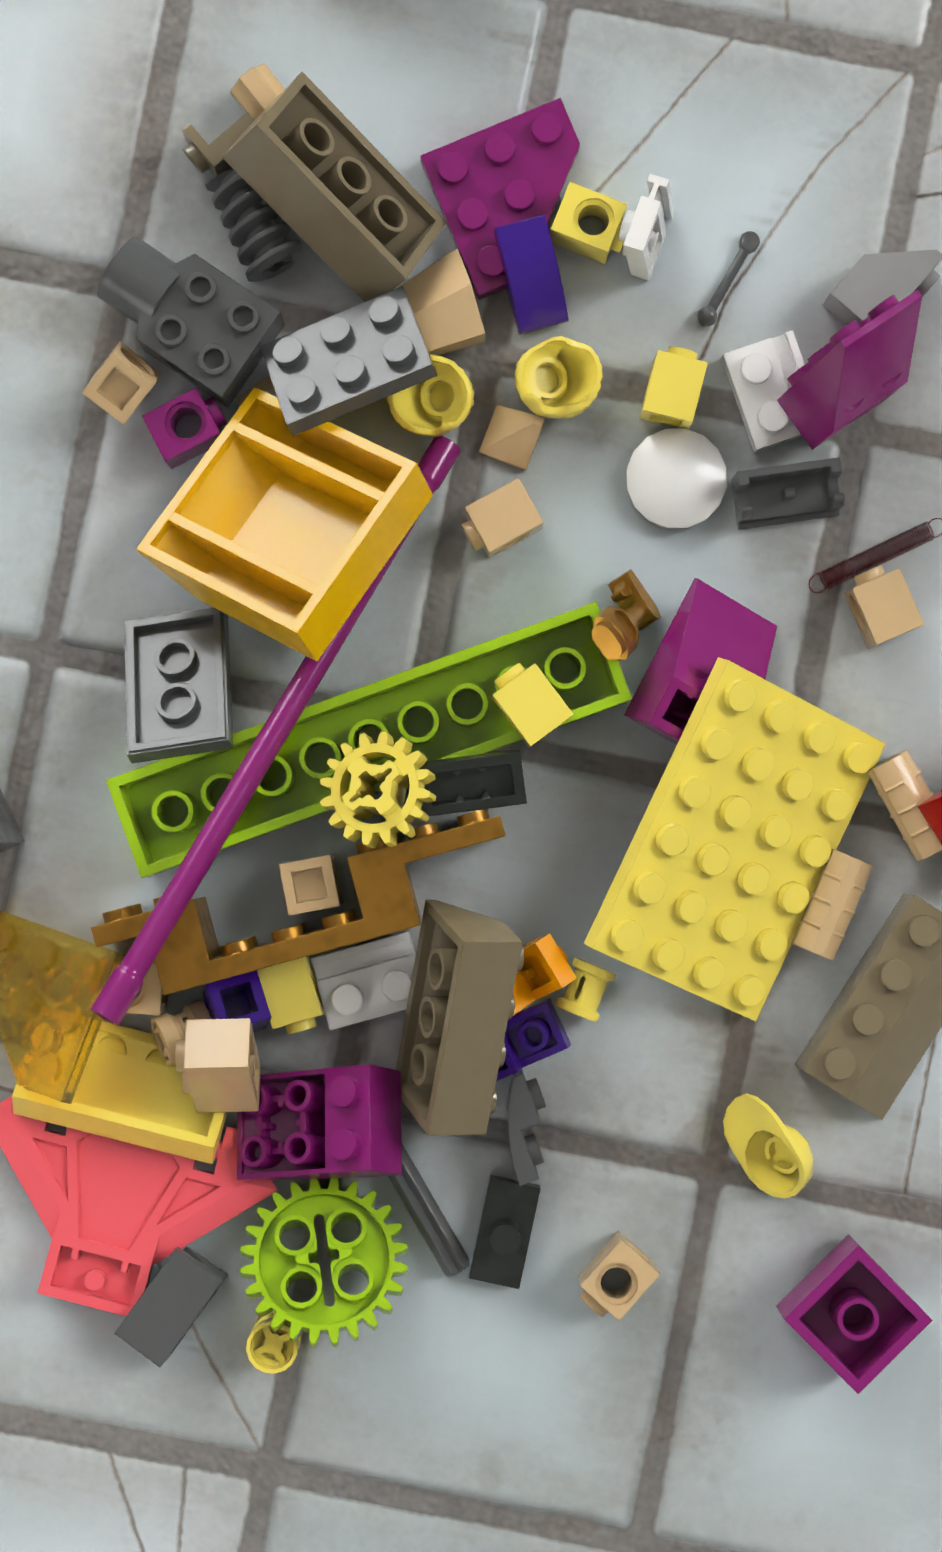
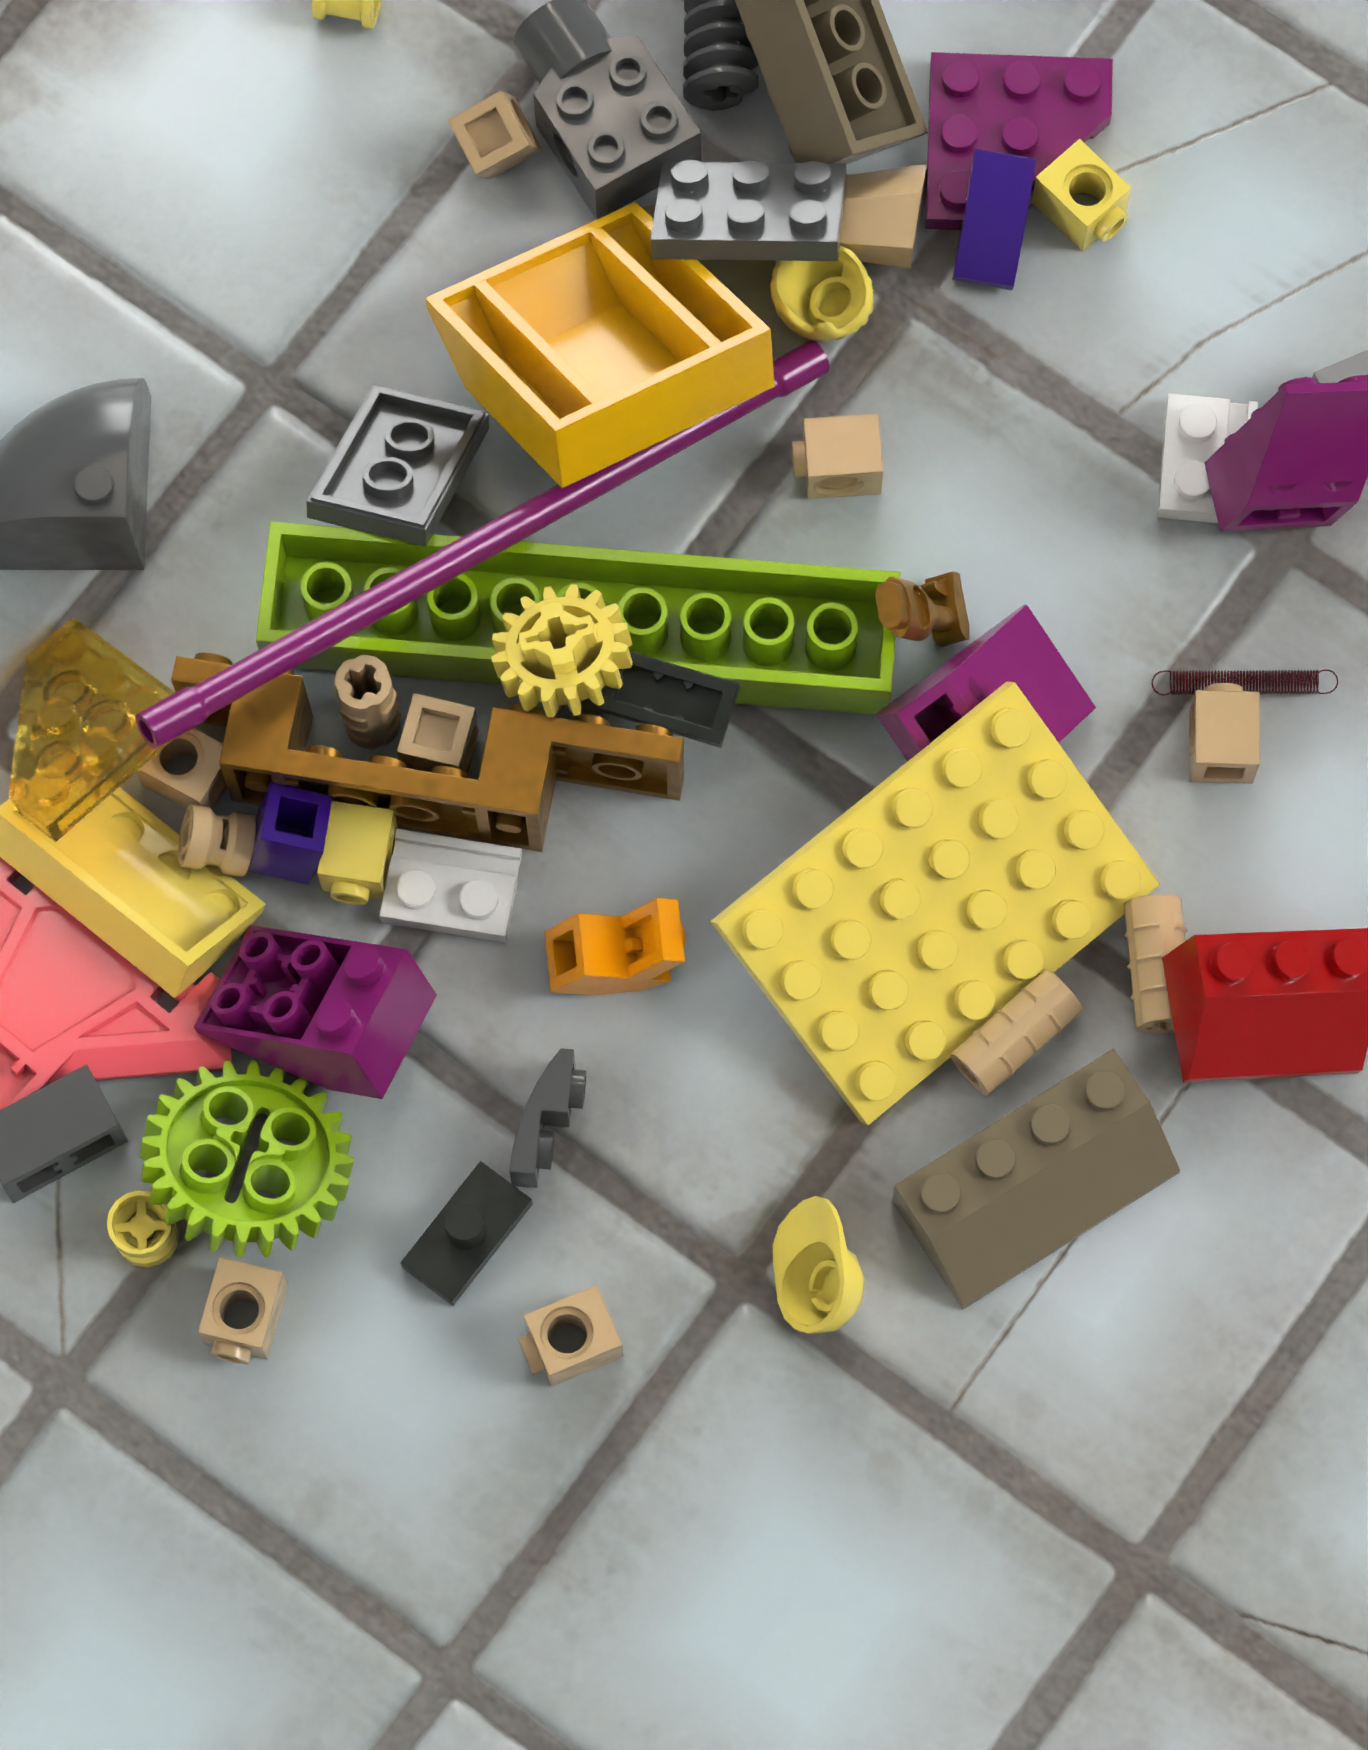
camera: 25 degrees right, 15 degrees down
(163, 423) = (528, 192): magenta brick -> none
(220, 1065) = (241, 875): tan brick -> none
(238, 895) = (367, 701): none -> tan axle
(380, 1346) = (238, 1282): none -> tan brick
(429, 1218) = (387, 1172): dark grey axle -> none
(457, 1019) = (530, 947): dark tan slope -> none
(512, 436) = (894, 381): tan slope -> none
(530, 702) = (775, 638): light yellow brick -> none
(532, 1037) = (593, 1025): dark purple slope -> none
(558, 378) = (972, 334): light yellow hair -> none
(586, 991) = (690, 1000): light yellow bush -> none
(645, 229) = (1140, 219): white plate -> none
(673, 388) = (1095, 404): light yellow brick -> none
(676, 478) = (1055, 502): white dish -> none
(748, 244) = (1251, 297): dark grey hinge -> none
(787, 493) = (1172, 567): dark grey hinge -> none
(853, 1314) = (825, 1497): magenta brick -> none

